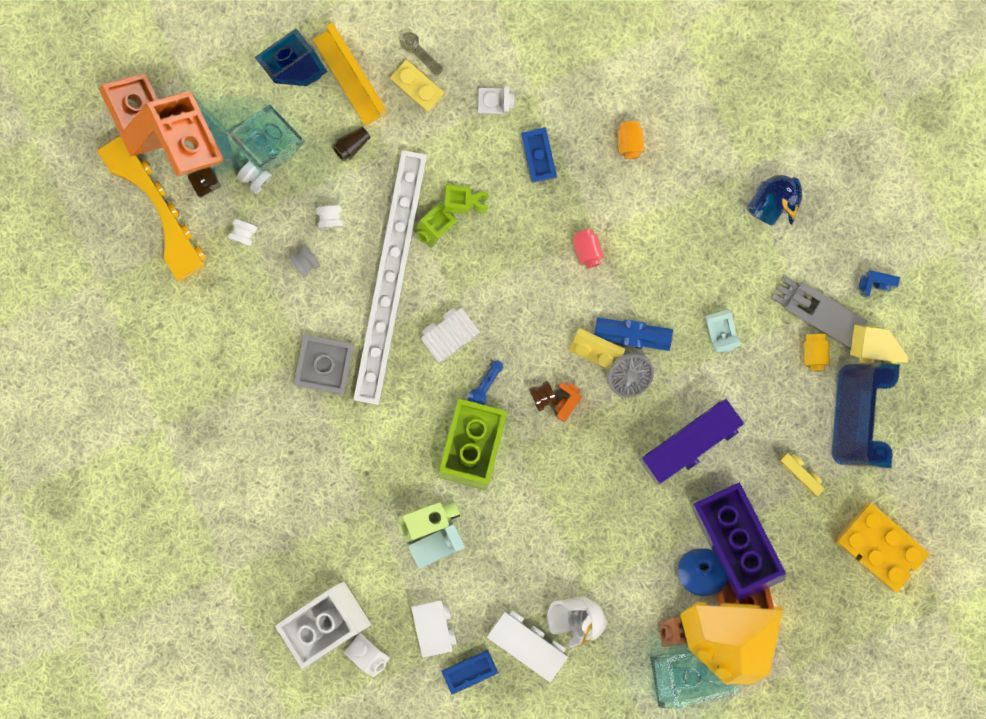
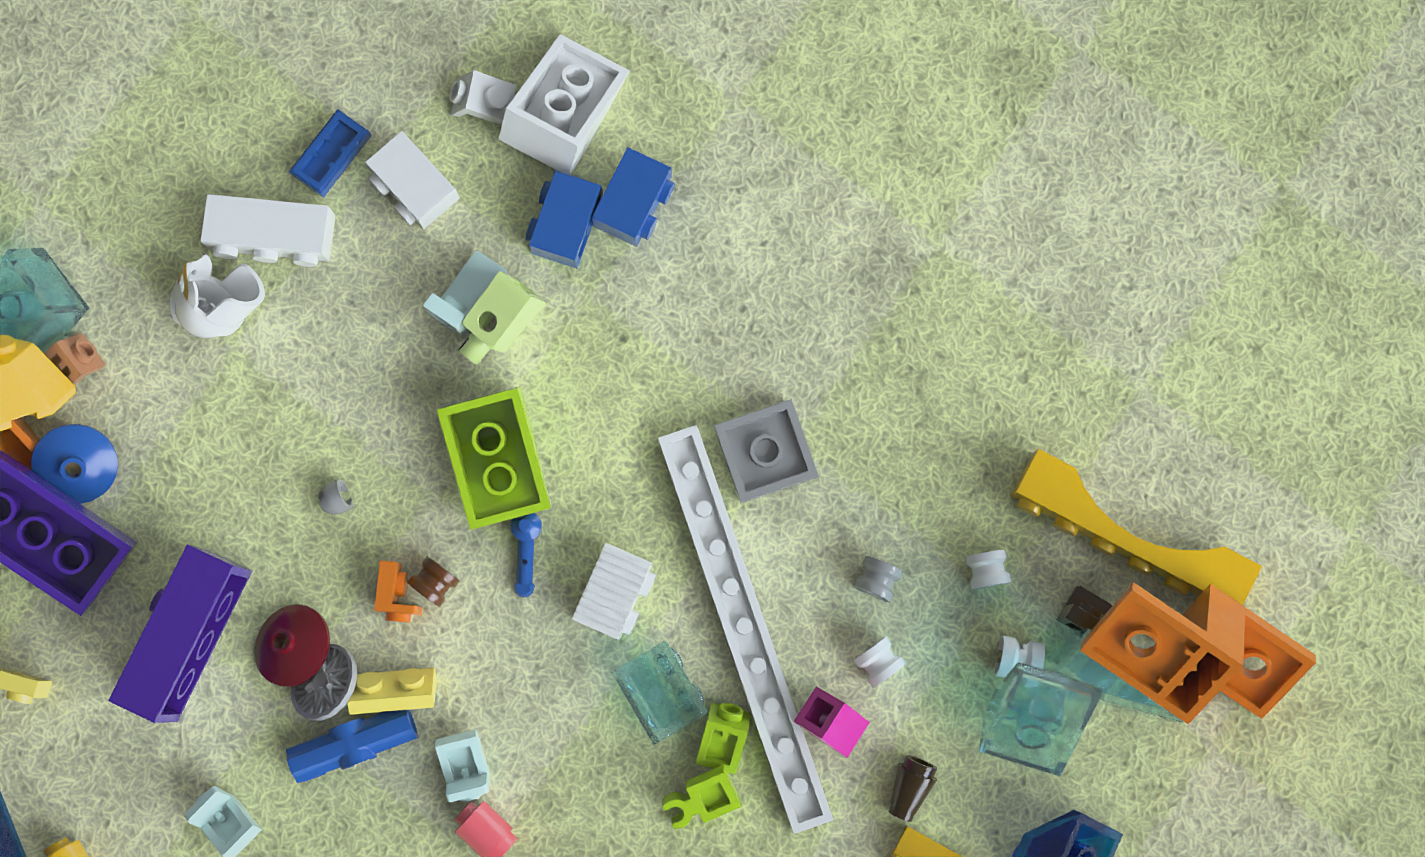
camera: 155 degrees right, 5 degrees down
(314, 548) = (633, 197): none -> blue brick
(360, 557) = (564, 219): none -> blue brick
(373, 200) = (831, 721): none -> dark pink brick
(454, 268) = (660, 692): none -> clear light blue bracket
(574, 473) = (332, 500): none -> light grey hinge
(580, 288) = (463, 766): none -> light aqua bracket
(630, 397) = (305, 647): none -> dark red dish

